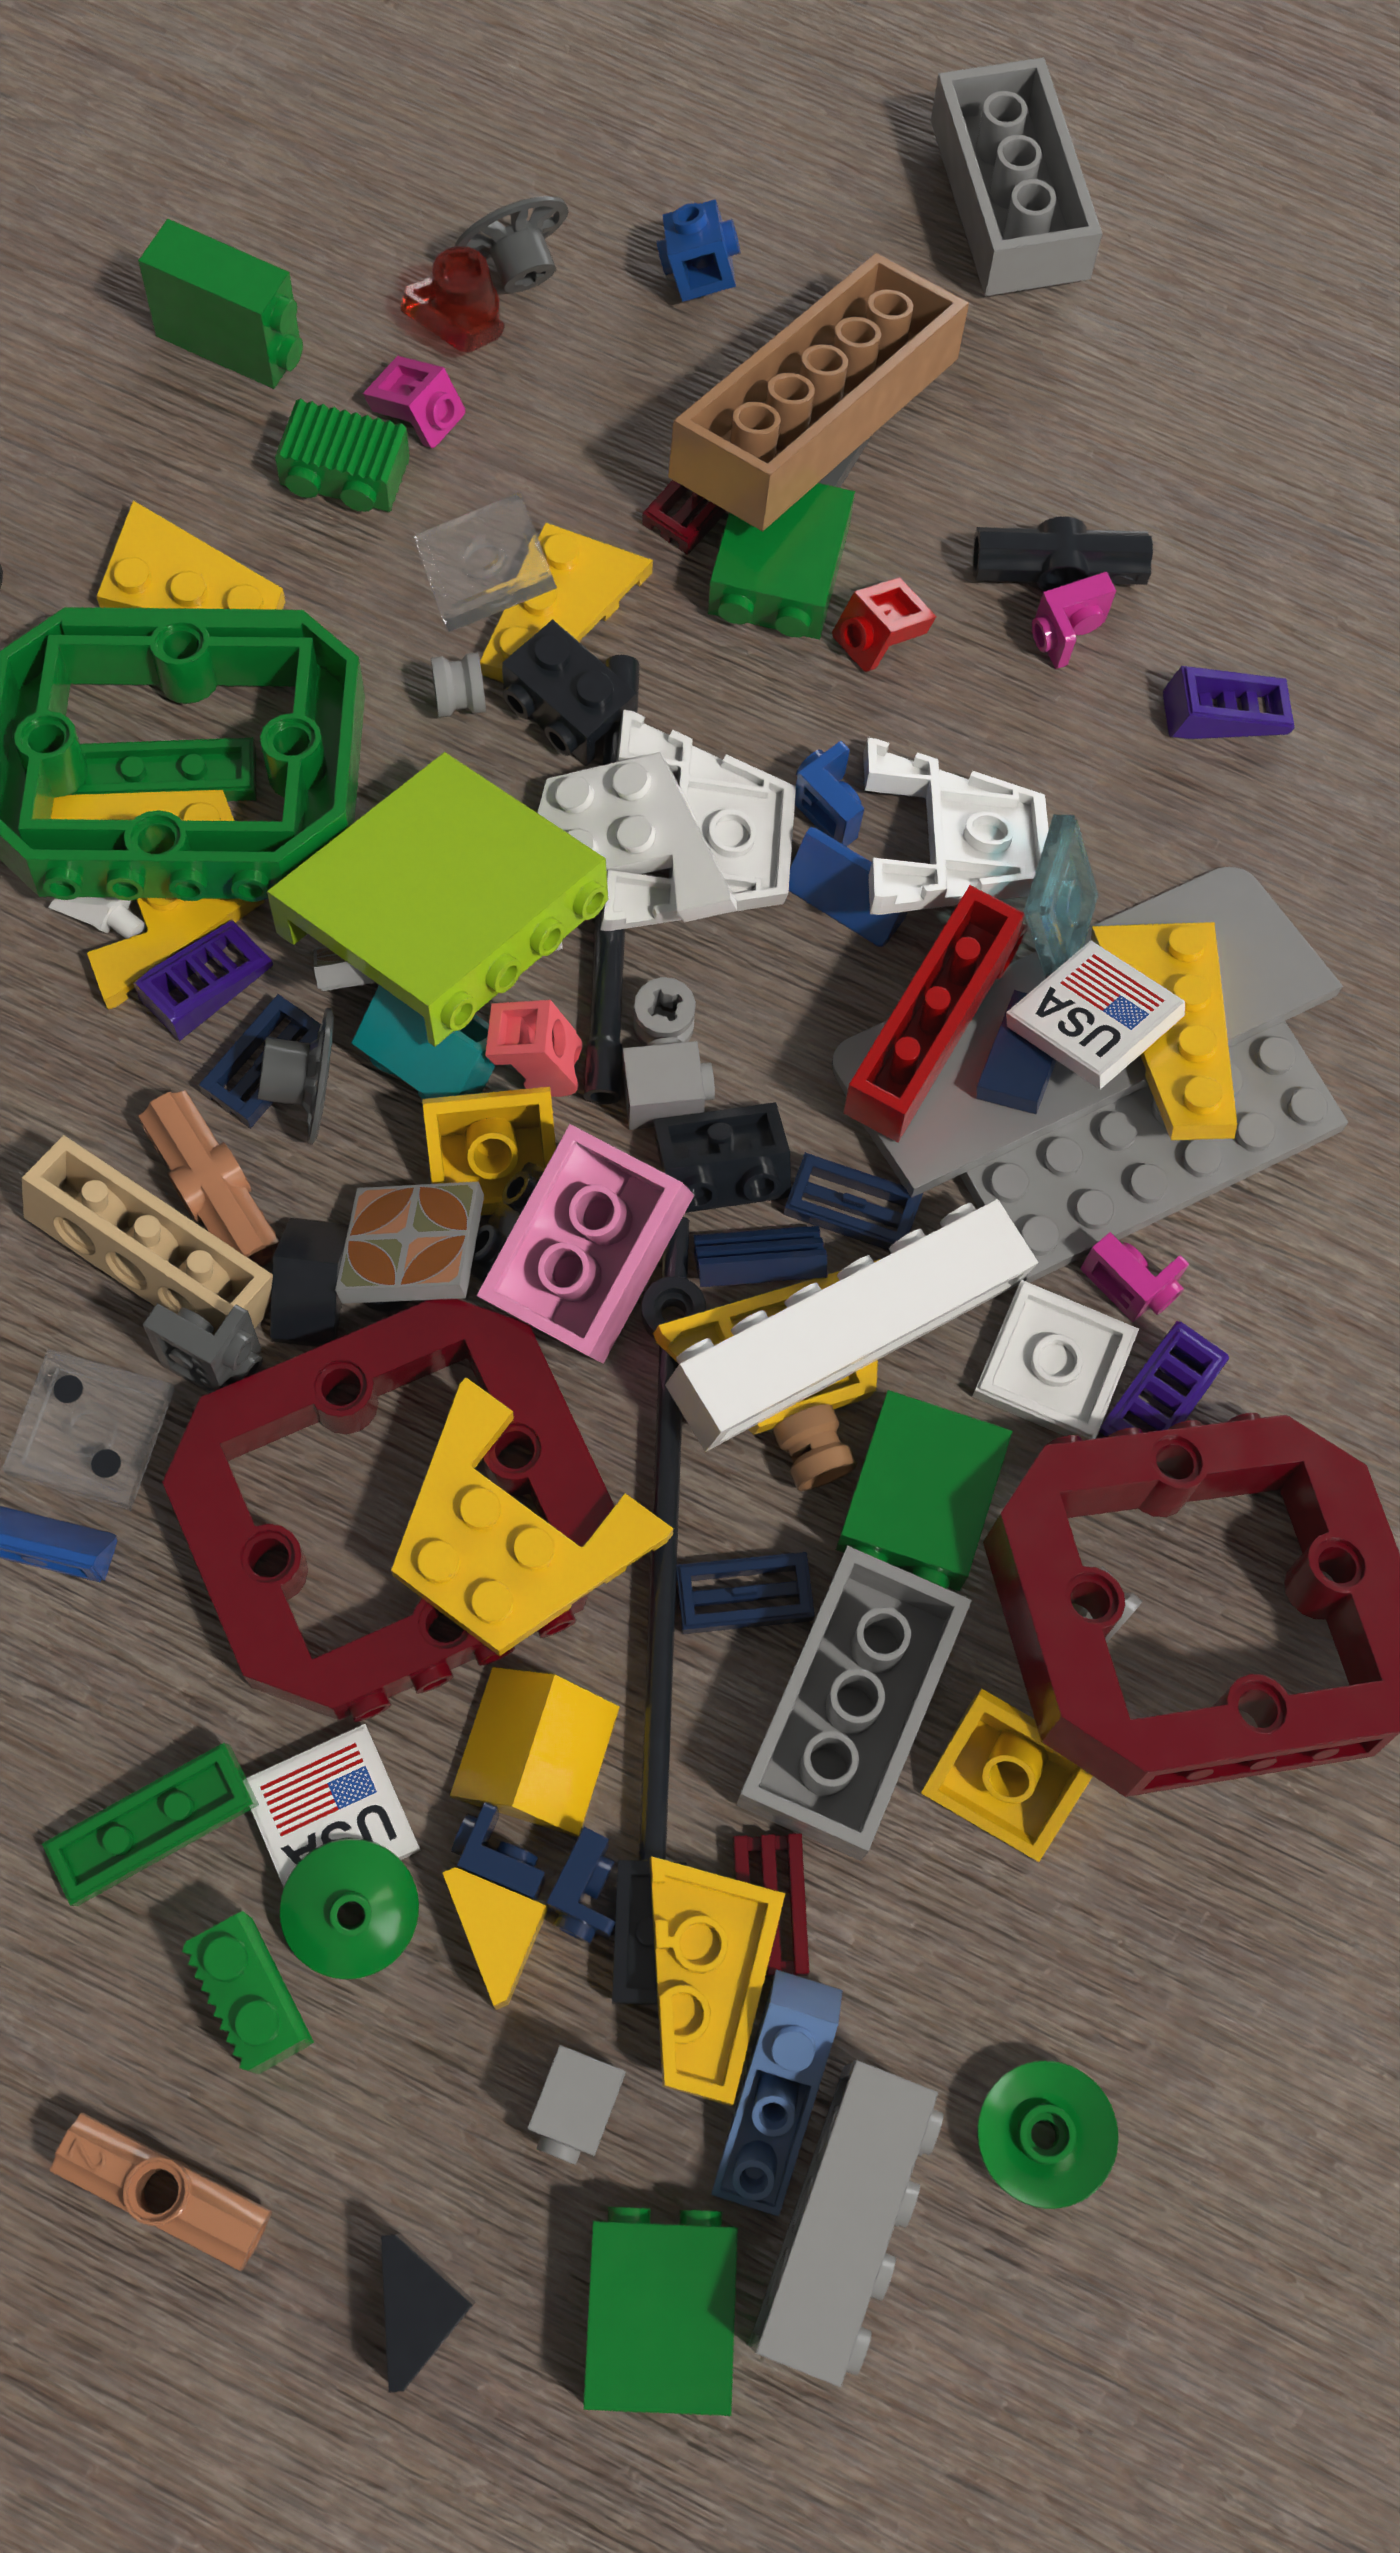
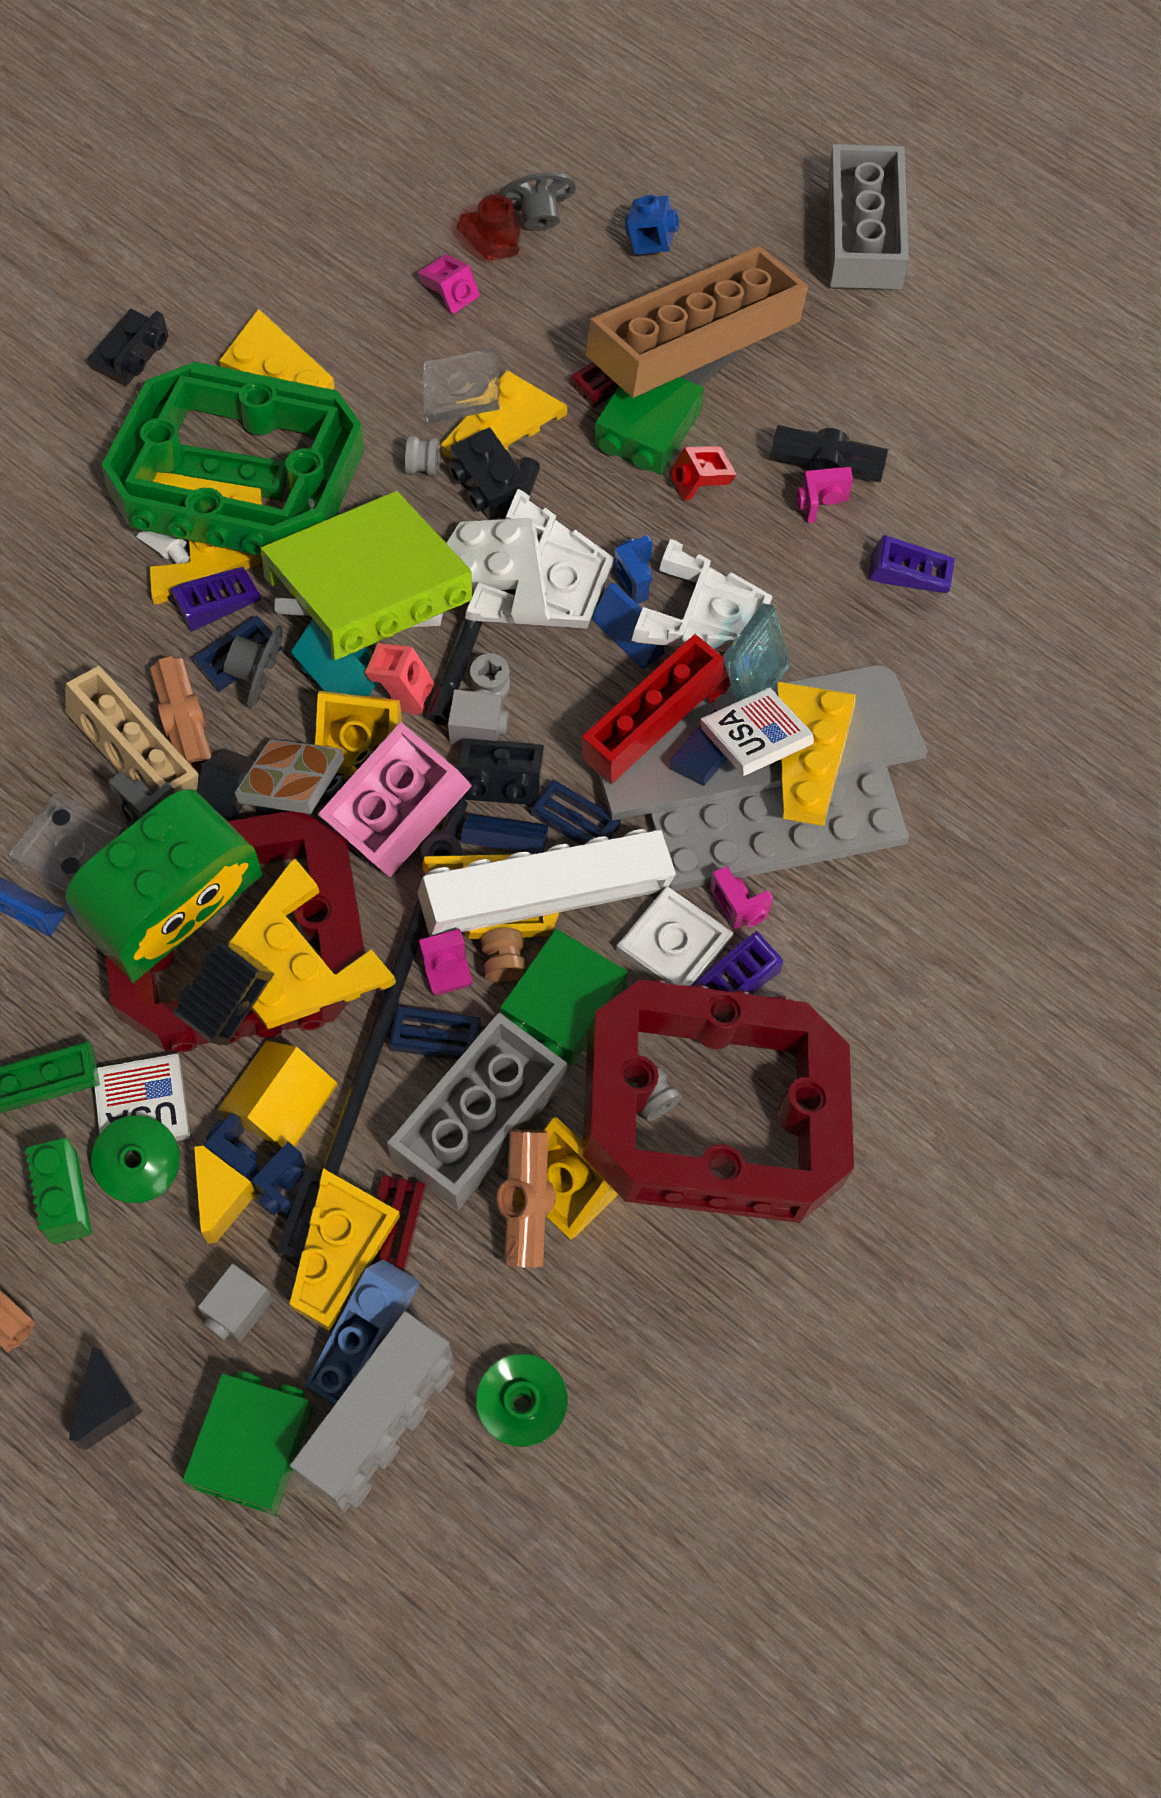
camera: 20 degrees right, 5 degrees down
(221, 303) = (344, 202): green brick -> none
(276, 1470) = (160, 881): none -> green brick
(342, 456) = (393, 307): green brick -> none
(423, 1622) = (222, 992): none -> black brick
(732, 1482) = (445, 962): none -> dark pink bracket
(971, 1859) = (526, 1198): none -> nougat piece

